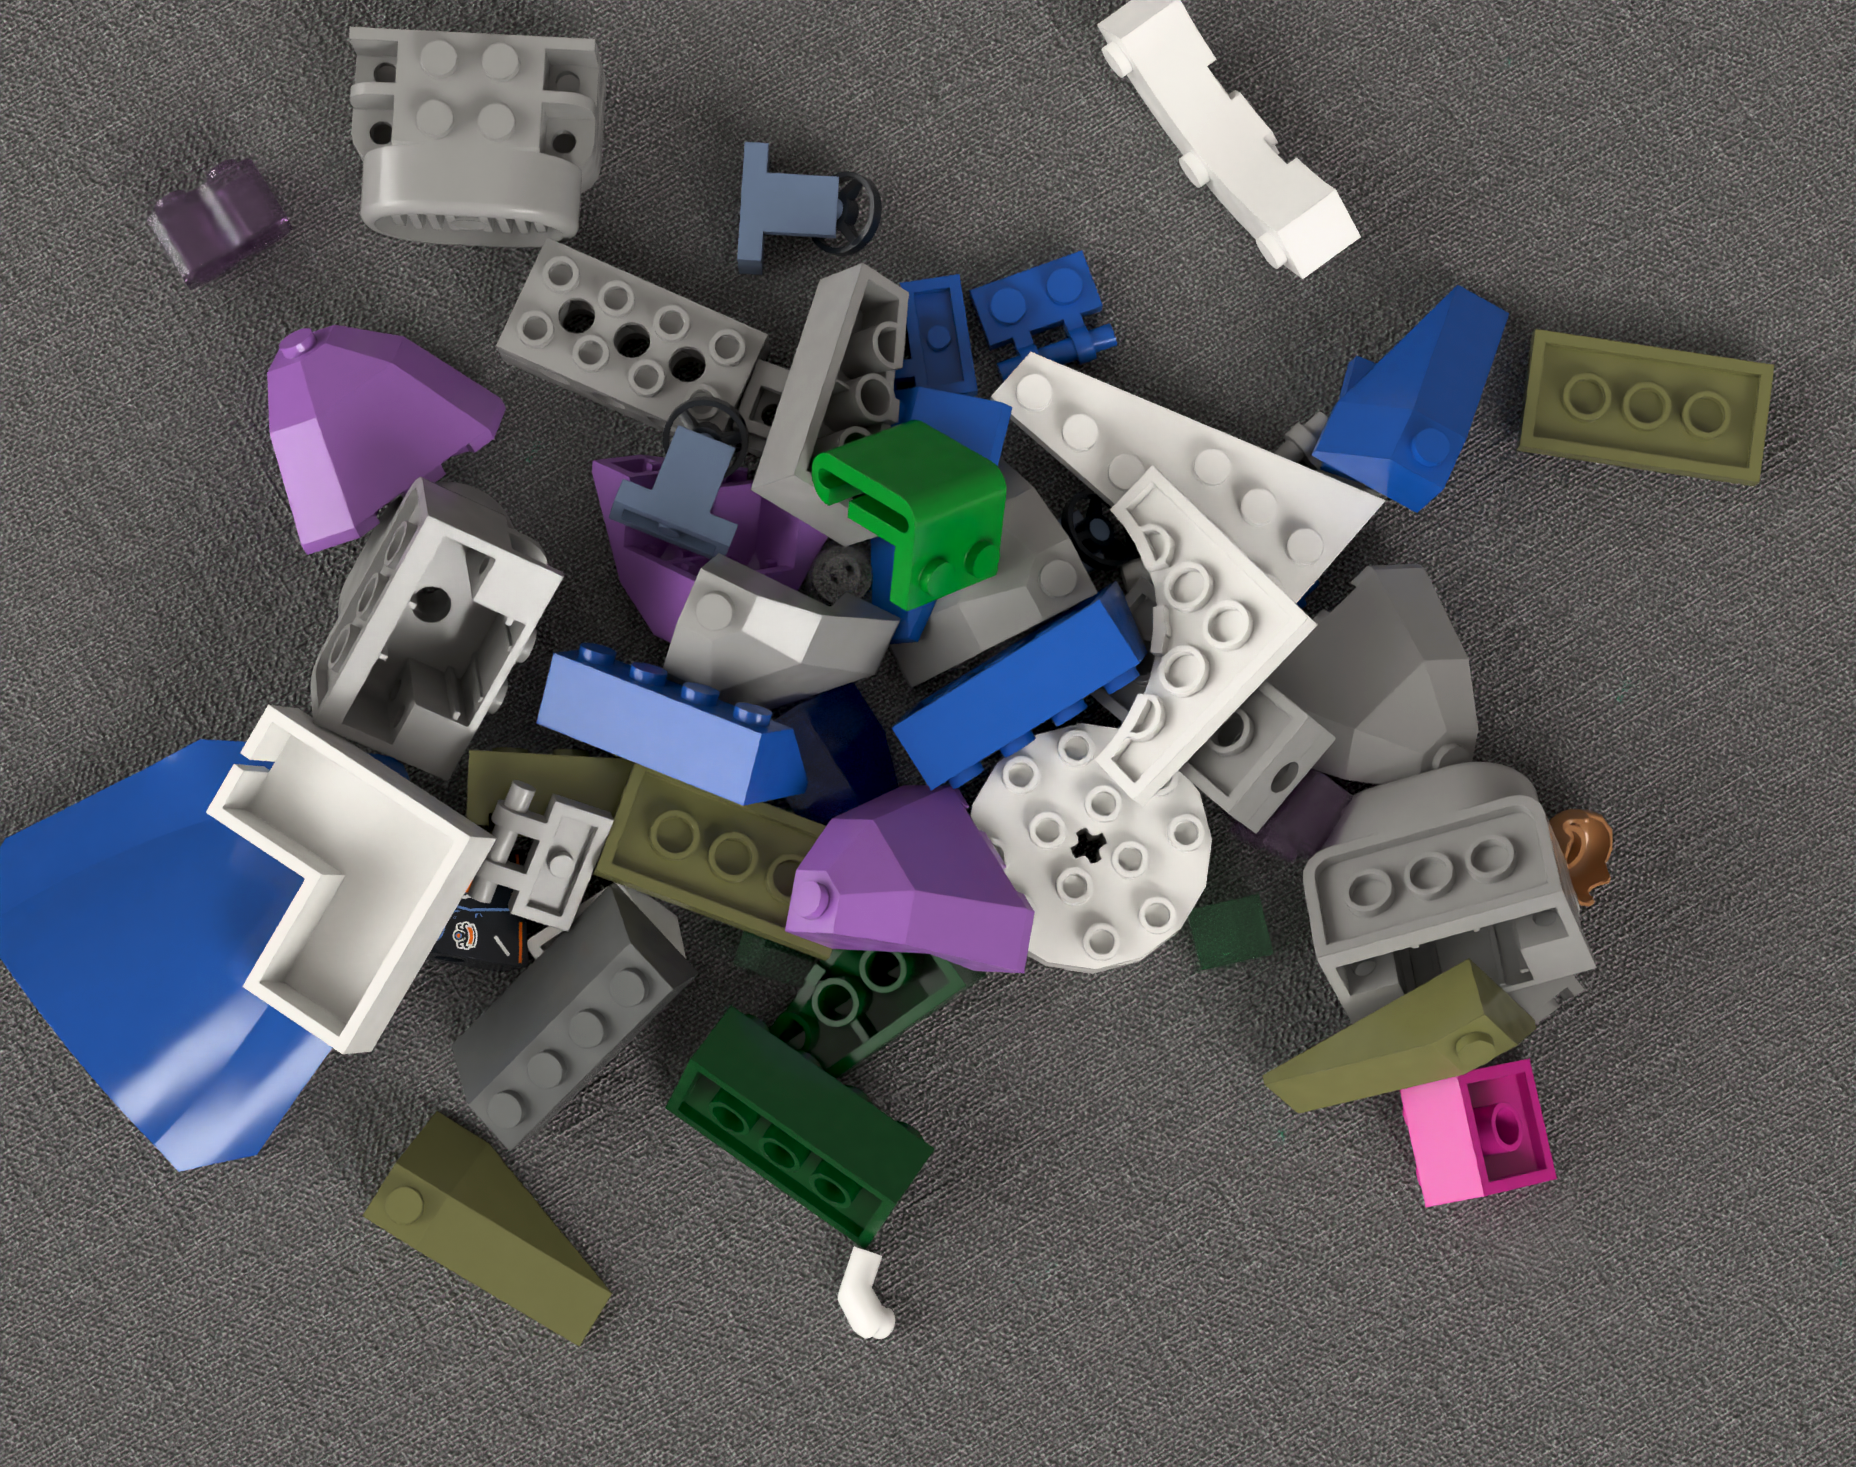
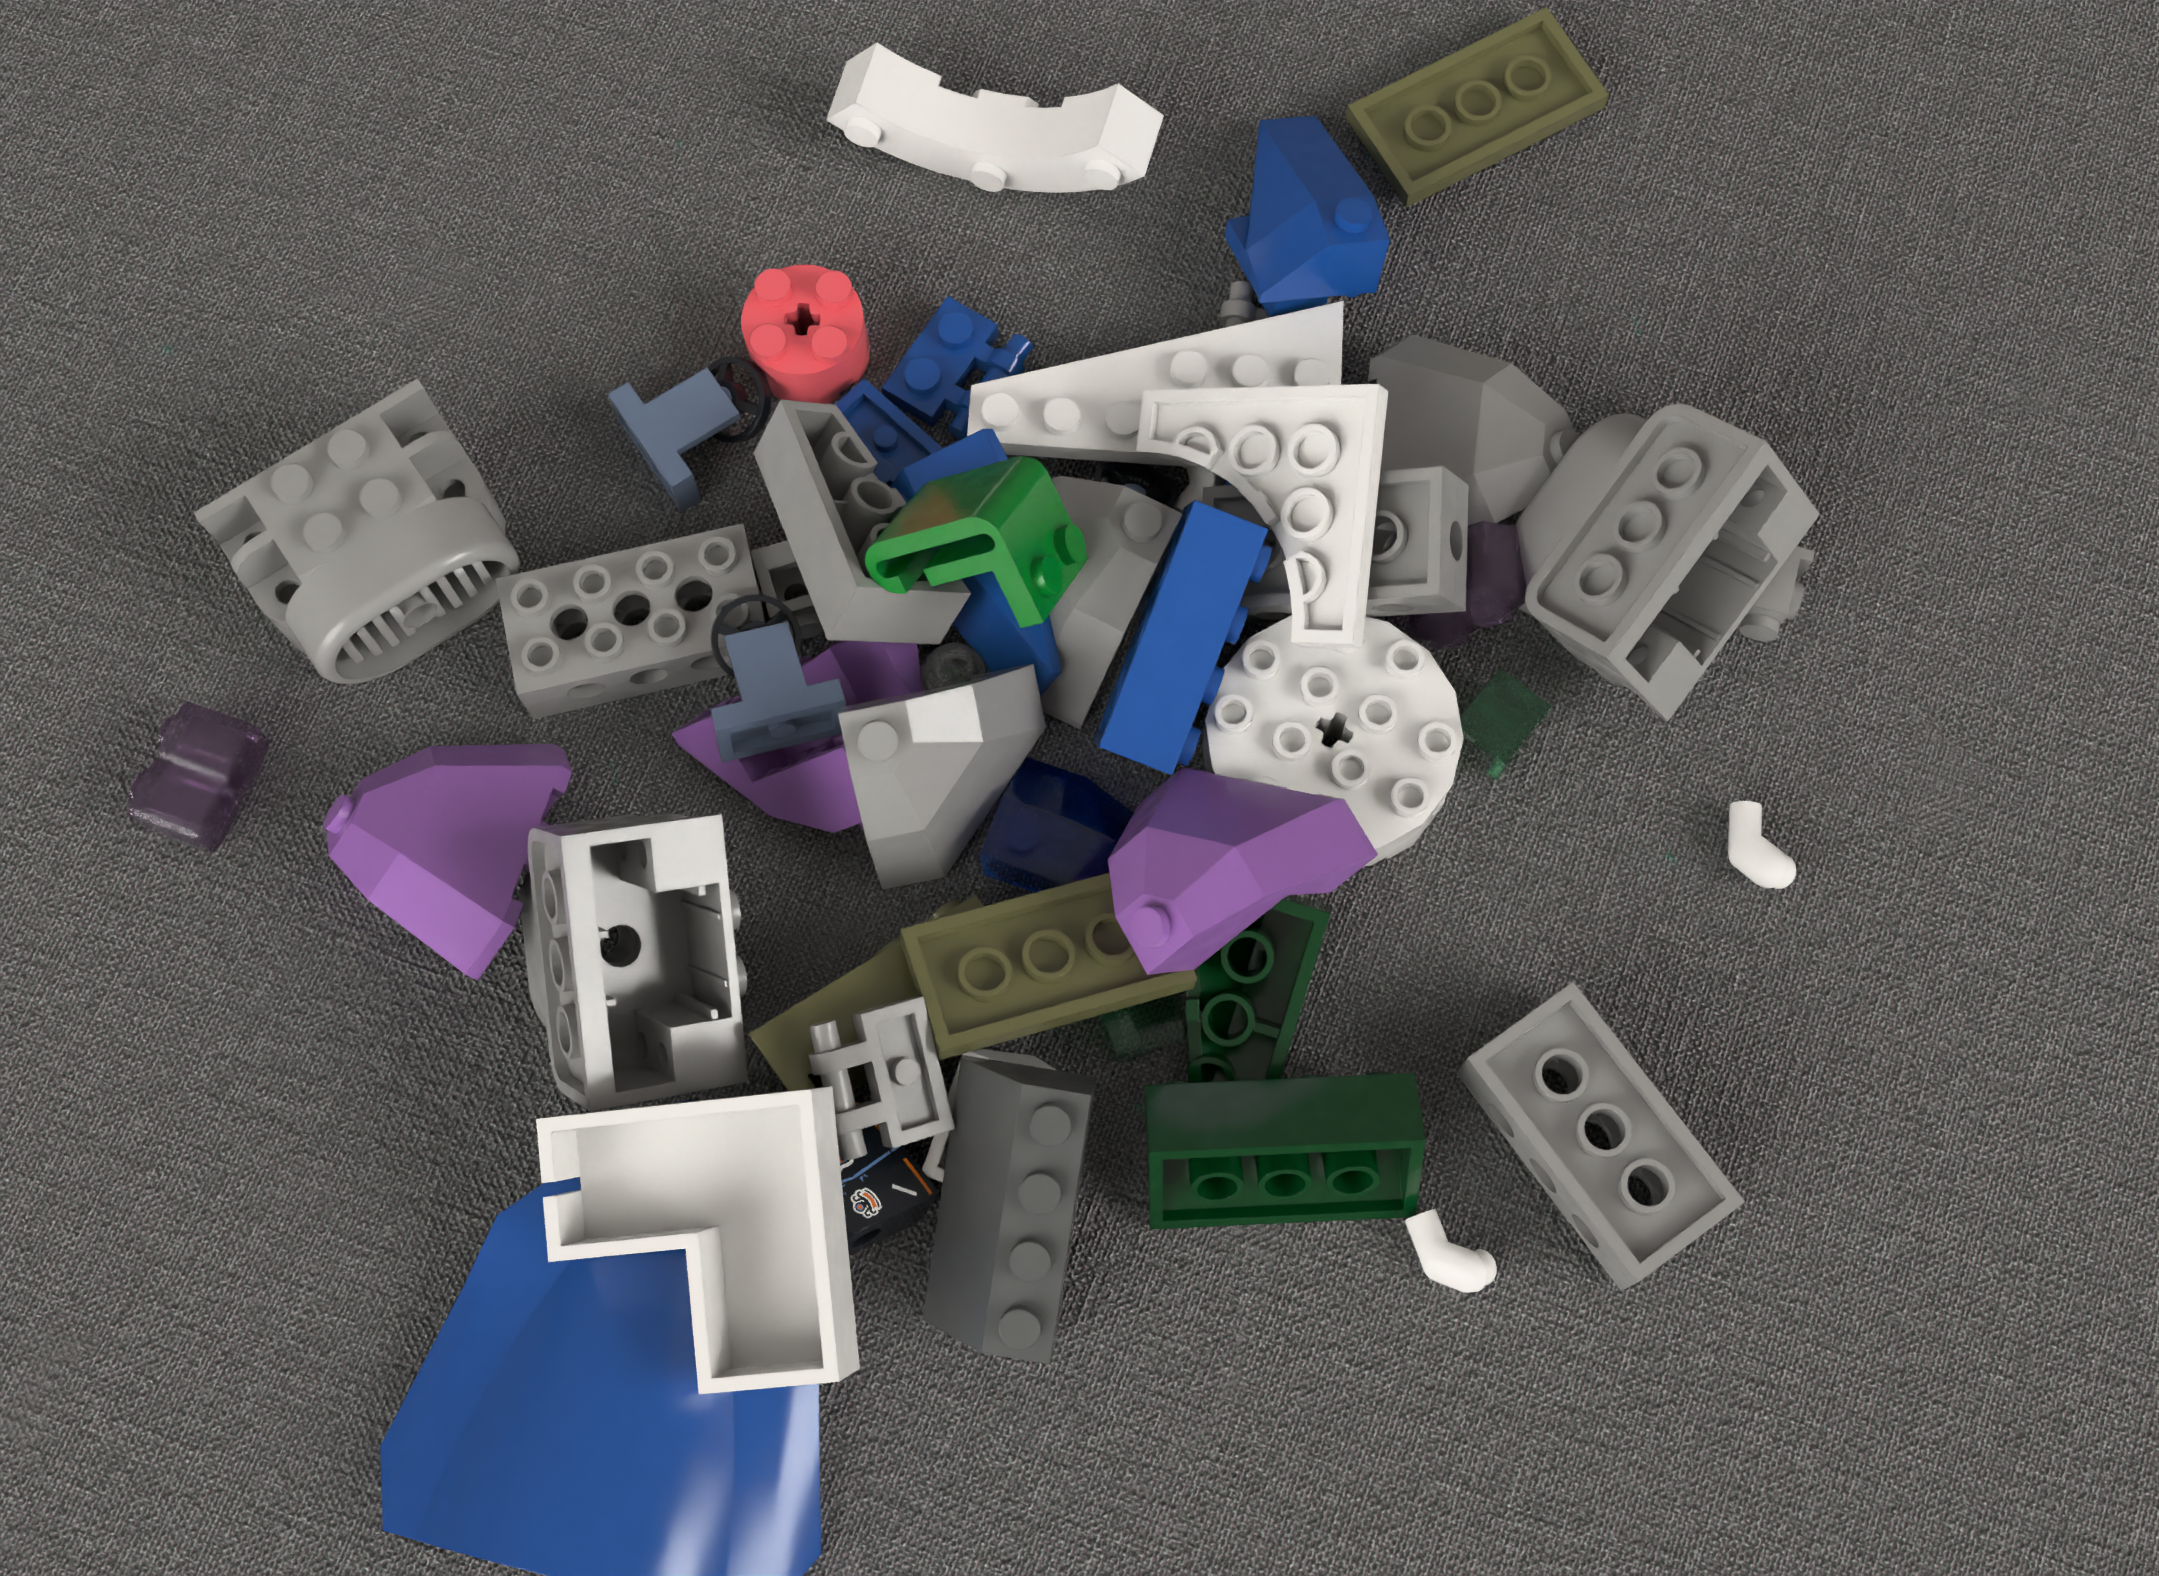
camera: 35 degrees left, 10 degrees down
(477, 1219) = (1066, 1453): olive wedge -> none
(671, 726) = (909, 881): slope -> none
(941, 168) = (806, 332): none -> coral brick
(1070, 1327) = (1641, 1127): none -> light grey brick
(1342, 1183) = (1752, 852): none -> white arm
(1414, 1040) = (1729, 677): olive wedge -> none
(1478, 1133) = (1824, 733): dark pink slope -> none

